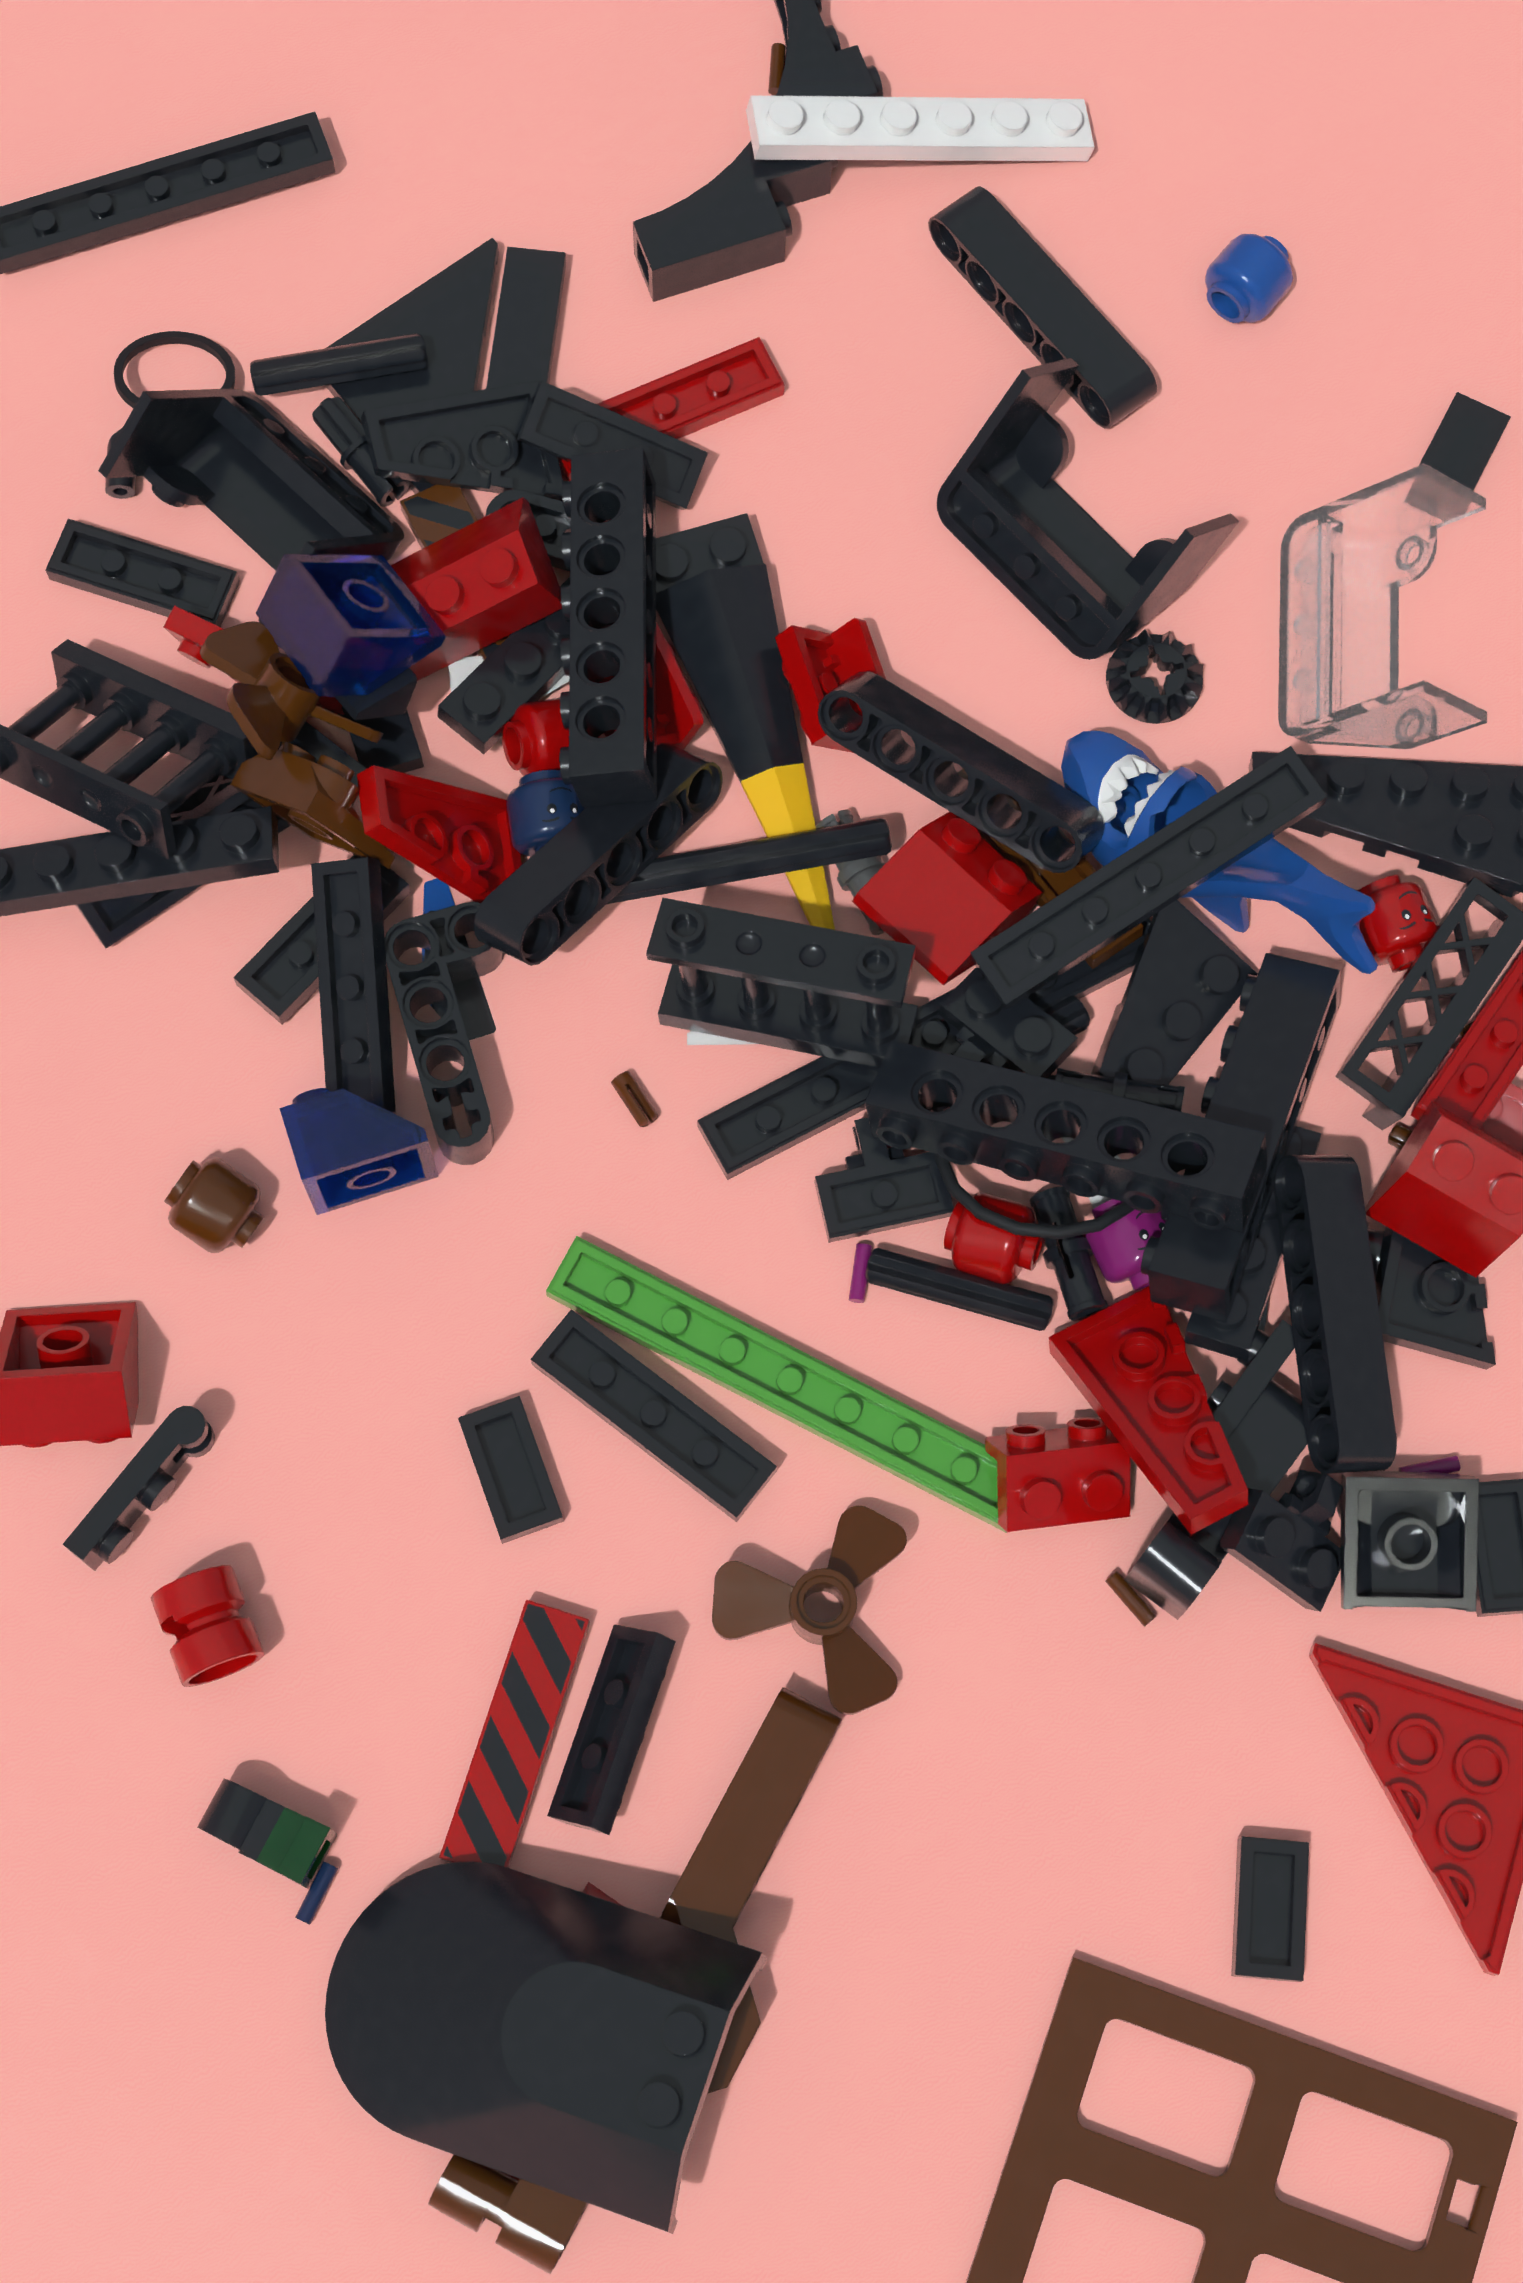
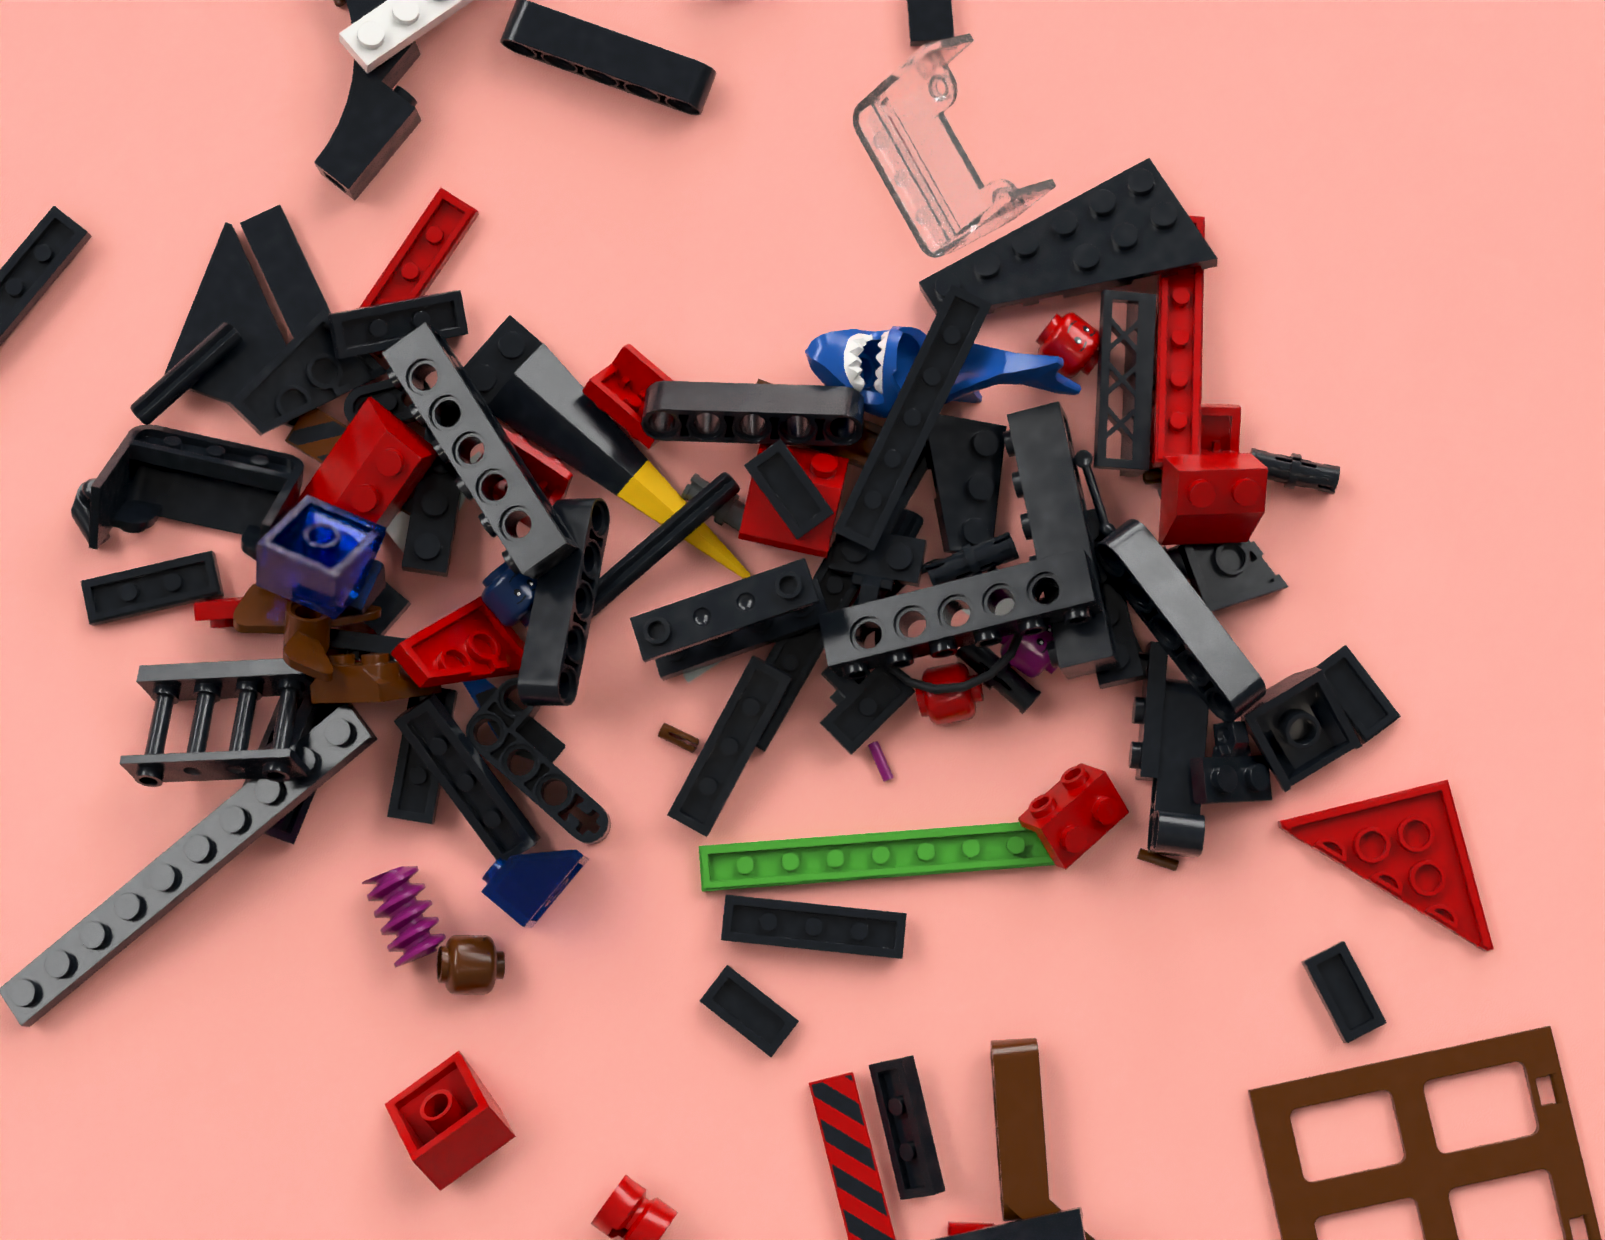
camera: 30 degrees left, 10 degrees up
(141, 1485) = (539, 1159): black plate -> none
(169, 337) = (60, 416): black piece -> none
(175, 1099) = (404, 914): none -> magenta piece
(349, 439) = (225, 418): black axle -> none
(535, 737) = (475, 548): red head -> none
(689, 1137) = (730, 745): none -> black plate
(755, 1602) = (985, 932): reddish brown piece -> none
(948, 873) = (789, 489): none -> black tile
(959, 1289) = (945, 736): black axle -> none
(1045, 544) = (712, 218): black windscreen -> none
(1138, 695) = (828, 287): black gear -> none
(1145, 1391) = (1096, 734): red wing -> none
(1329, 1061) = (1084, 460): none -> black hinge
(1442, 1465) = (1286, 670): magenta piece -> none

